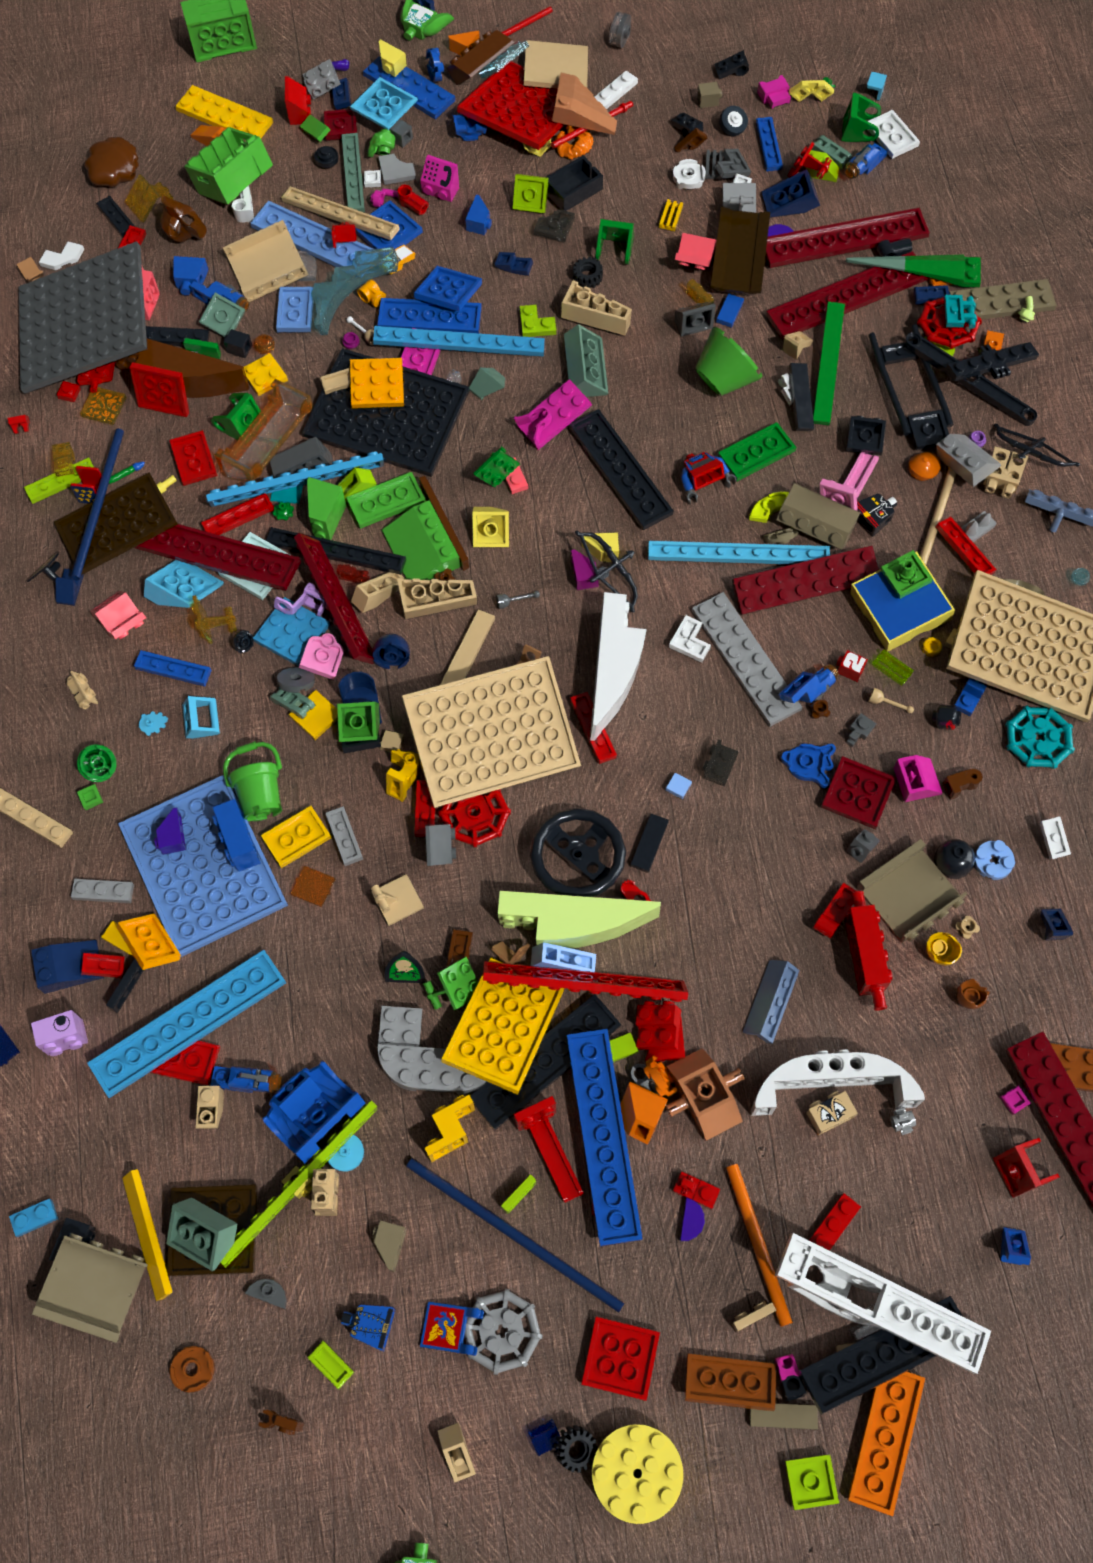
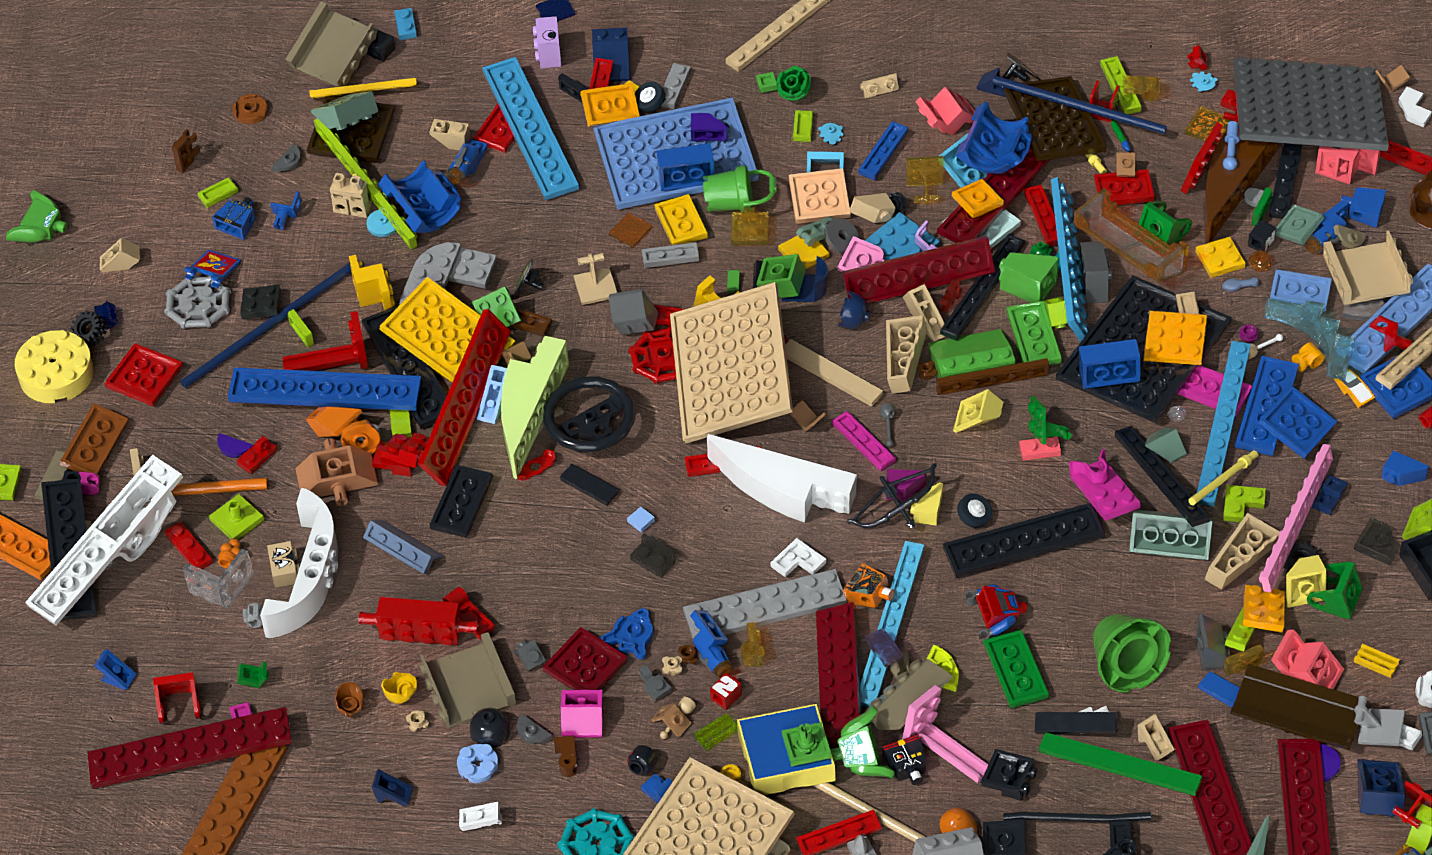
camera: 105 degrees right, 15 degrees down
(46, 417) = (1203, 81): none -> medium azure piece
(126, 906) = (649, 96): none -> black wheel
(145, 751) = (803, 126): none -> lime tile
(165, 554) = (994, 143): none -> blue piece
(167, 455) = (1125, 164): none -> medium nougat bracket
(169, 359) = (1232, 138): none -> medium blue pin
(229, 278) = (1349, 237): none -> dark tan plate
(238, 561) = (977, 198): none -> light orange tile
(244, 712) = (819, 195): none -> light nougat plate
(254, 656) = (873, 207): none -> tan slope
(294, 359) = (1234, 285): none -> sand blue piece
(297, 769) = (749, 227): none -> clear yellow plate
(354, 1270) = (284, 211): none -> blue bracket
(365, 771) = (733, 281): none -> bright green piece
(389, 1242) = (294, 237): dark tan slope -> none
(423, 420) = (1109, 363): none -> blue brick
(489, 1254) = (260, 301): none -> pearl dark grey plate
(497, 323) = (1243, 462): none -> light yellow bar
(532, 372) = (1161, 476): none -> black tile
(538, 616) = (863, 441): none -> dark pink tile
(547, 272) = (1296, 518): none -> bright pink plate
(600, 509) = (974, 510): none -> black wheel
(613, 259) = (1303, 578): none -> light yellow slope
(648, 286) = (1263, 608): none -> light orange plate
(672, 298) = (1239, 635): none -> lime plate
(703, 957) = (461, 501): none -> black plate
(708, 573) = (868, 587): none -> torso
(772, 546) = (884, 646): none -> clear purple slope
(783, 1185) = (236, 517): none -> lime tile
(794, 654) = (752, 646): none -> clear yellow plate
(832, 723) = (674, 669): none -> tan plate
(833, 1173) = (228, 552): none -> orange piece
(883, 542) = (859, 748): none -> bright green torso
(883, 1155) = (221, 589): none -> clear bracket
(895, 702) = (673, 718): none -> medium nougat bracket
(945, 821) = (531, 732): none -> flat silver plate
(971, 1100) = (252, 675): none -> green bracket

